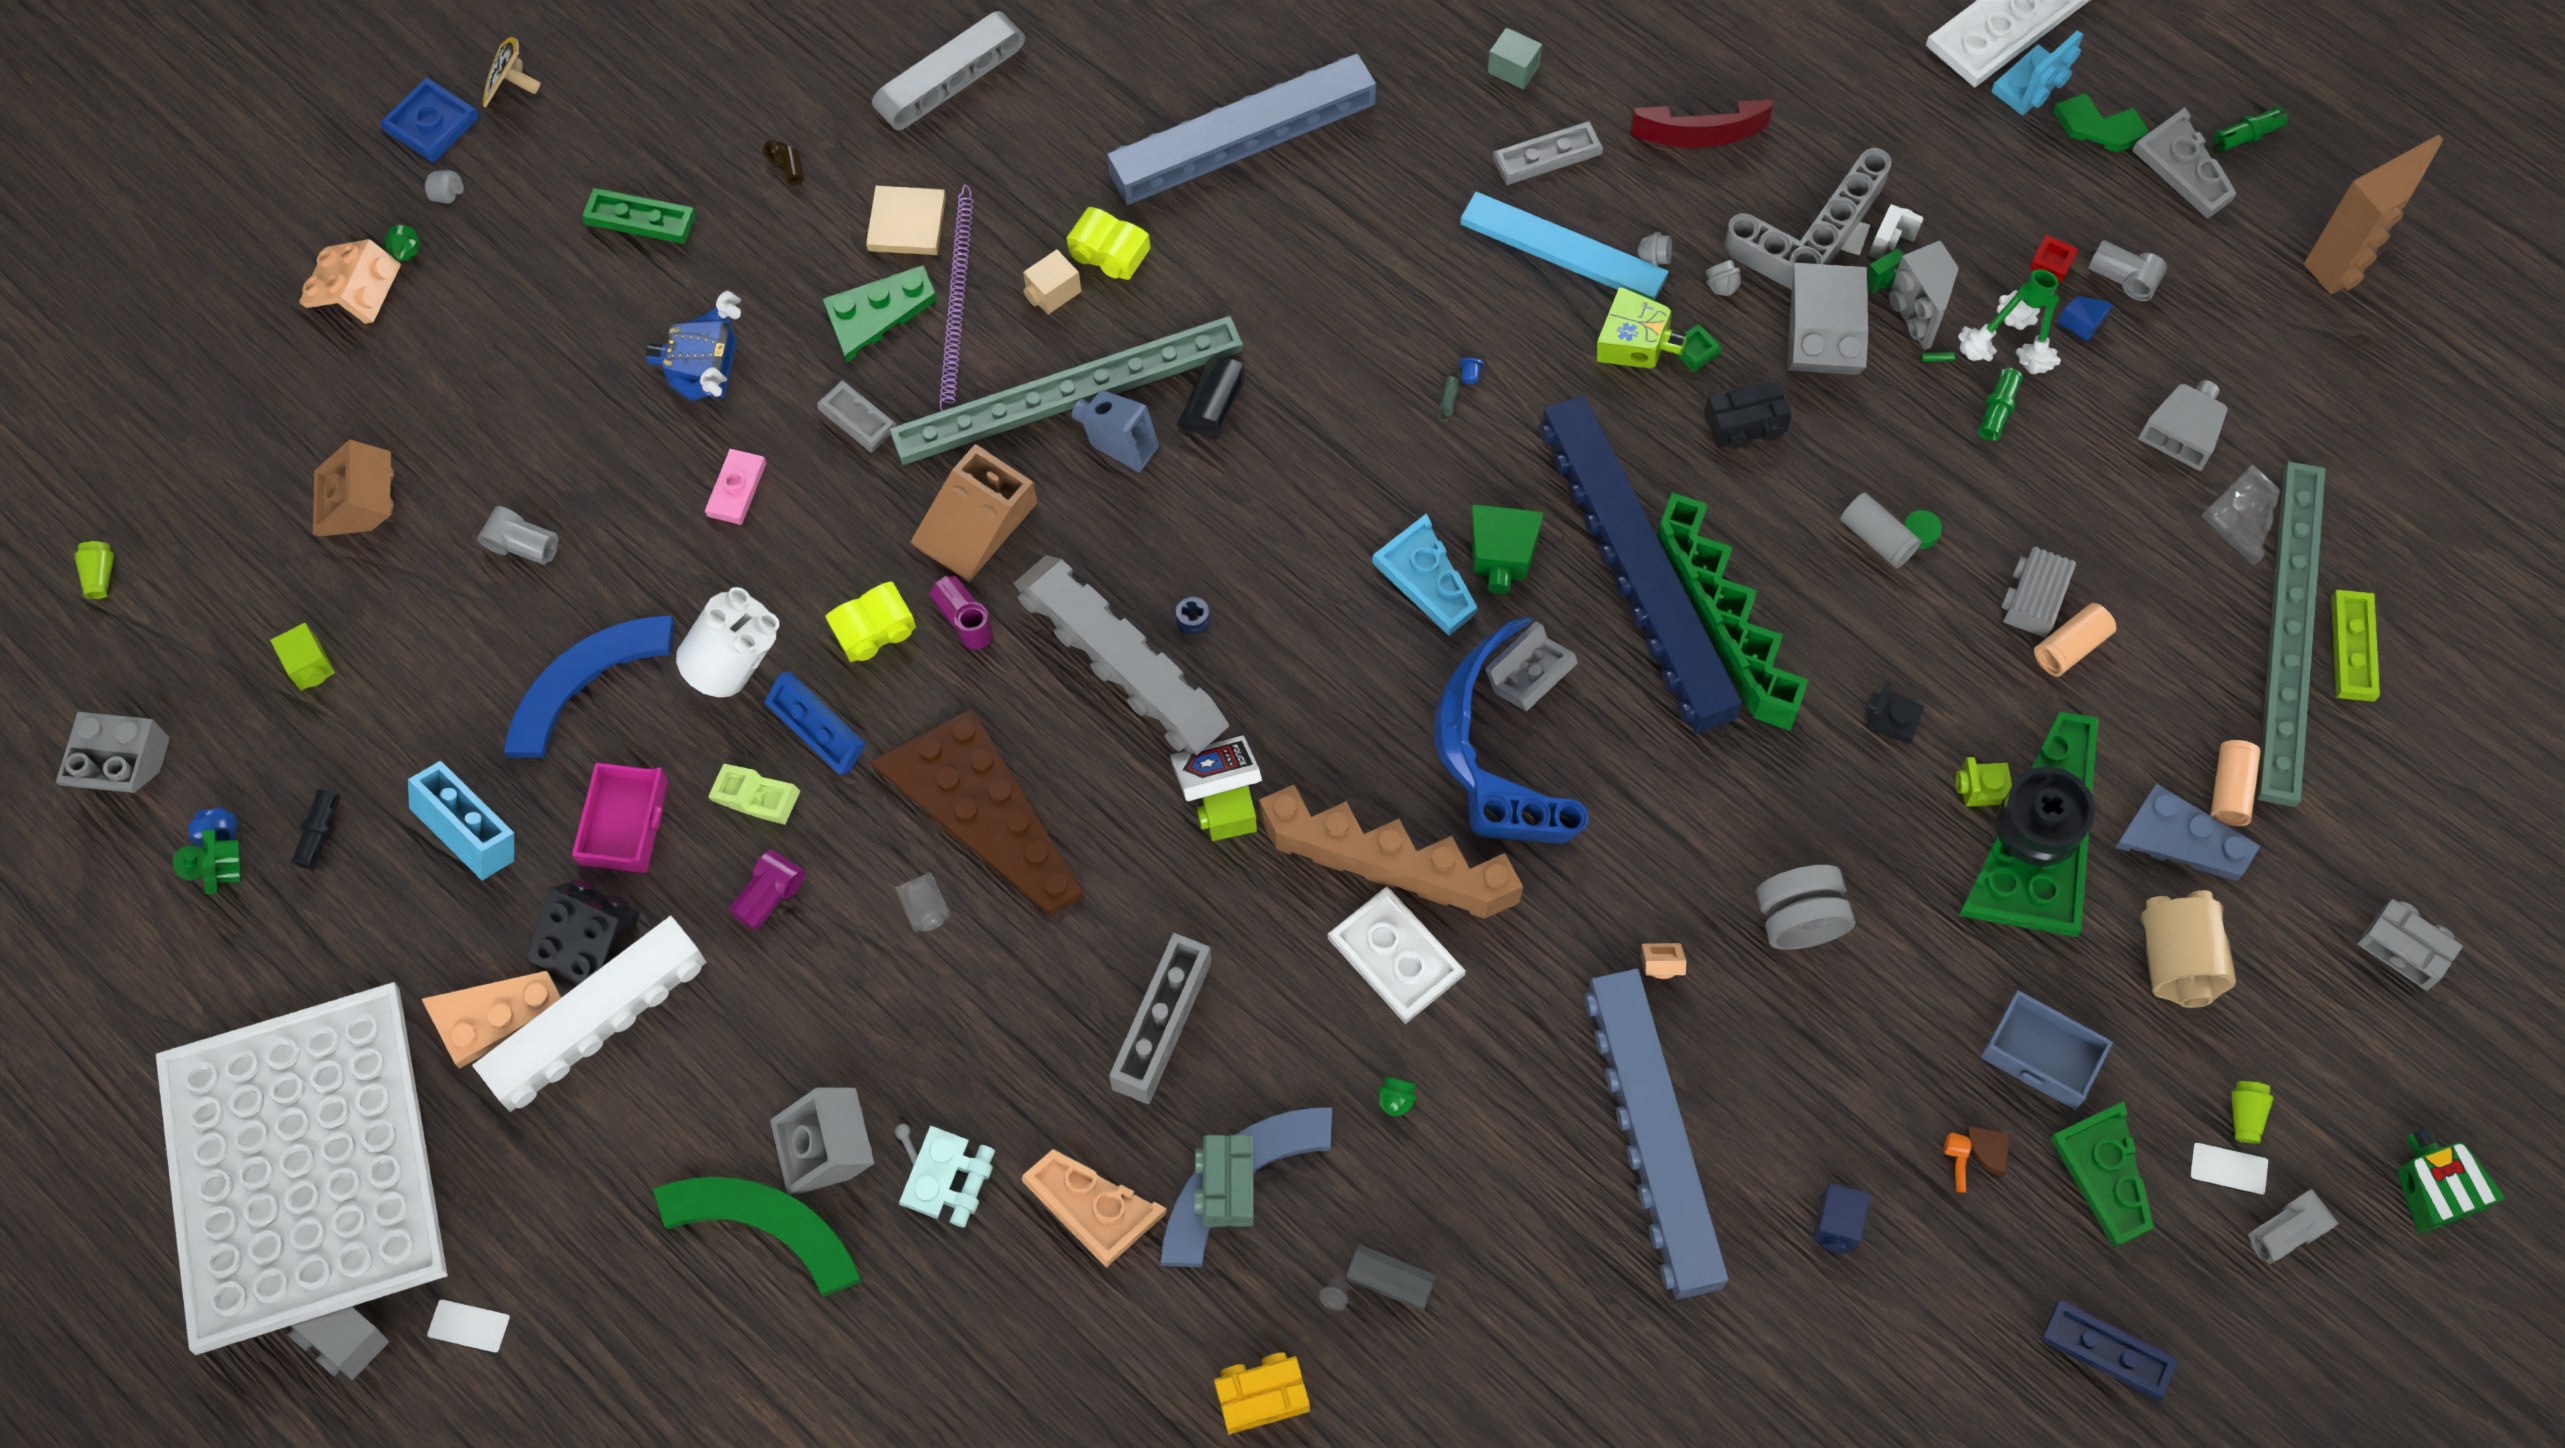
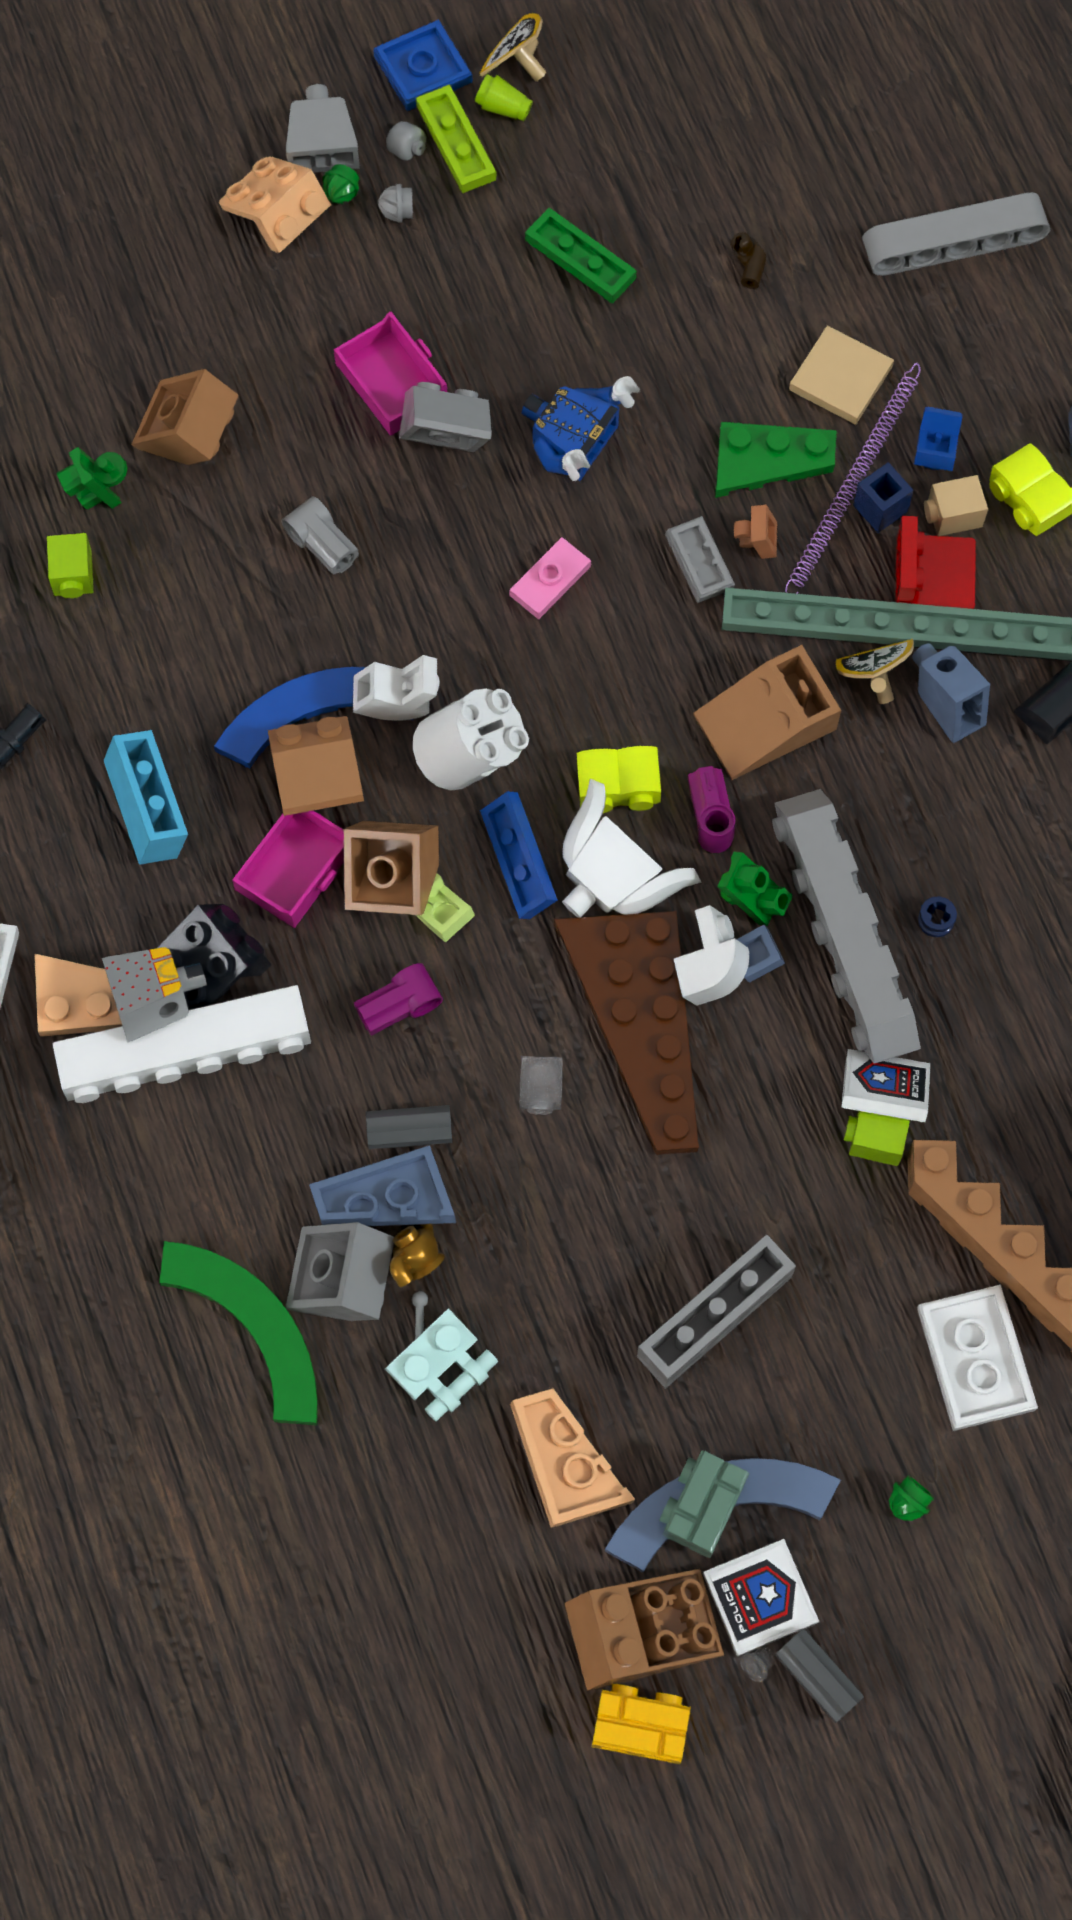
camera: 25 degrees right, 5 degrees up
(290, 576) = (92, 478): none -> green hips
(364, 207) = (321, 132): none -> light grey torso
(458, 239) = (396, 203): none -> light grey plate
(486, 166) = (456, 139): none -> lime plate
(512, 118) = (502, 98): none -> lime cone
(519, 378) = (384, 366): none -> dark pink container
(540, 978) = (150, 989): none -> light grey torso
(583, 393) = (445, 418): none -> light grey slope
(601, 725) = (315, 765): none -> medium nougat slope
(645, 635) = (396, 692): none -> white brick
(706, 781) = (389, 866): none -> medium nougat slope
(825, 991) = (408, 1127): none -> dark grey axle
(830, 1055) = (386, 1193): none -> sand blue wing
(879, 1090) = (414, 1254): none -> pearl gold piece
(896, 373) = (759, 532): none -> nougat tile
(899, 695) = (612, 866): none -> white torso
(987, 300) = (883, 497): none -> dark blue brick
(1011, 235) = (938, 439): none -> blue bracket
(1025, 660) = (753, 890): none -> green hips
(1027, 738) = (717, 967): none -> white brick
(1045, 435) = (875, 665): none -> shield
(1056, 338) = (934, 568): none -> red bracket
(1056, 712) = (763, 953): none -> sand blue plate
(1223, 1312) = (643, 1628): none -> medium nougat slope
(1311, 1238) = (760, 1597): none -> tile

